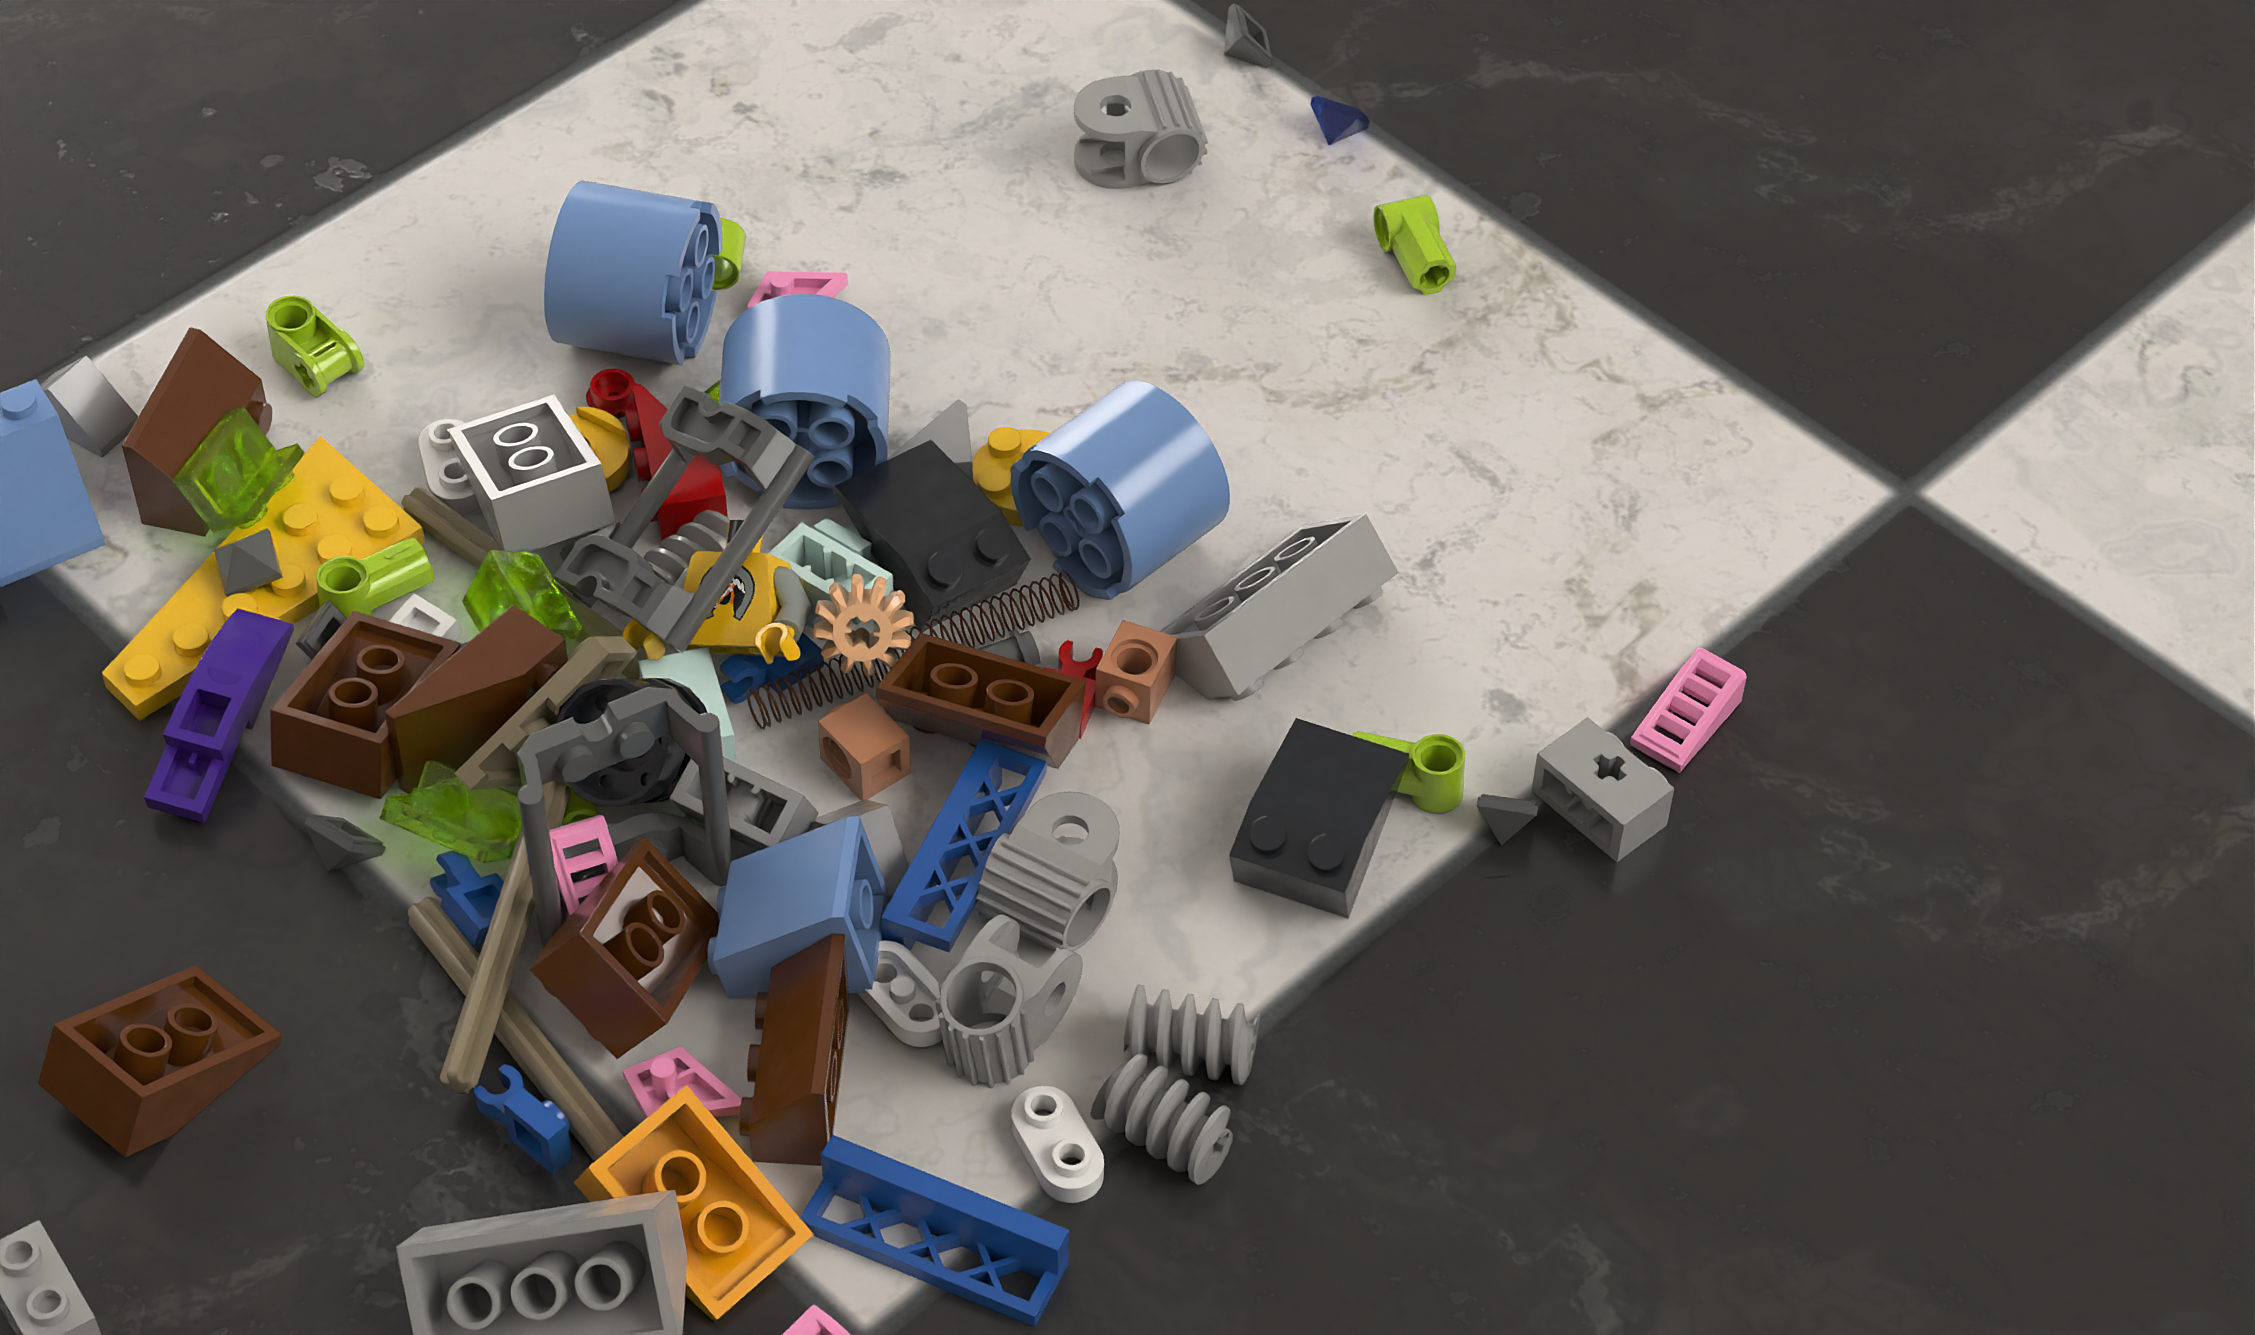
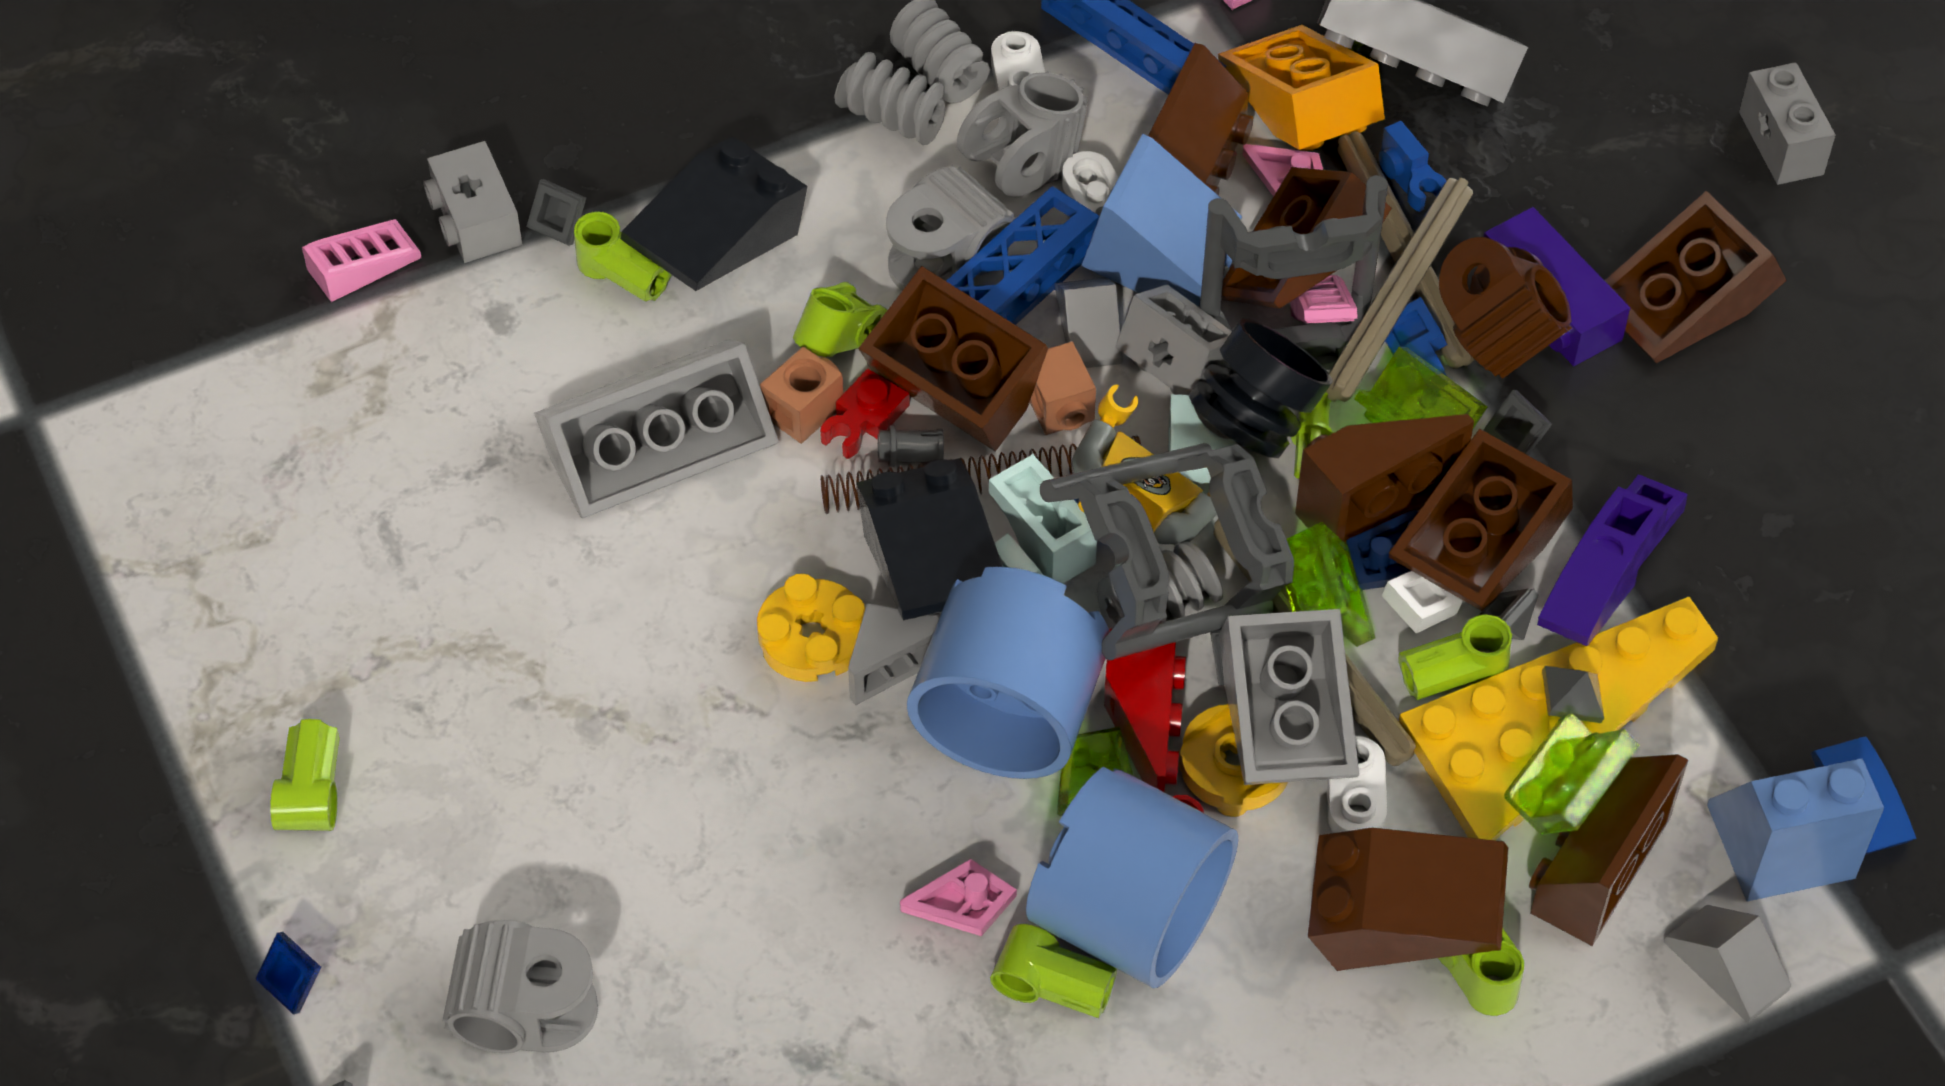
camera: 160 degrees left, 5 degrees up
(327, 1007) = (1595, 308): none -> dark purple brick
(339, 913) = (1510, 307): none -> reddish brown piece
(384, 338) = (1405, 896): none -> reddish brown slope
(497, 761) = (1312, 405): dark tan wing -> none
(865, 605) = (1033, 426): light nougat gear -> none
(1121, 488) = (752, 502): medium blue brick -> none
(1129, 751) = (836, 320): none -> lime piece

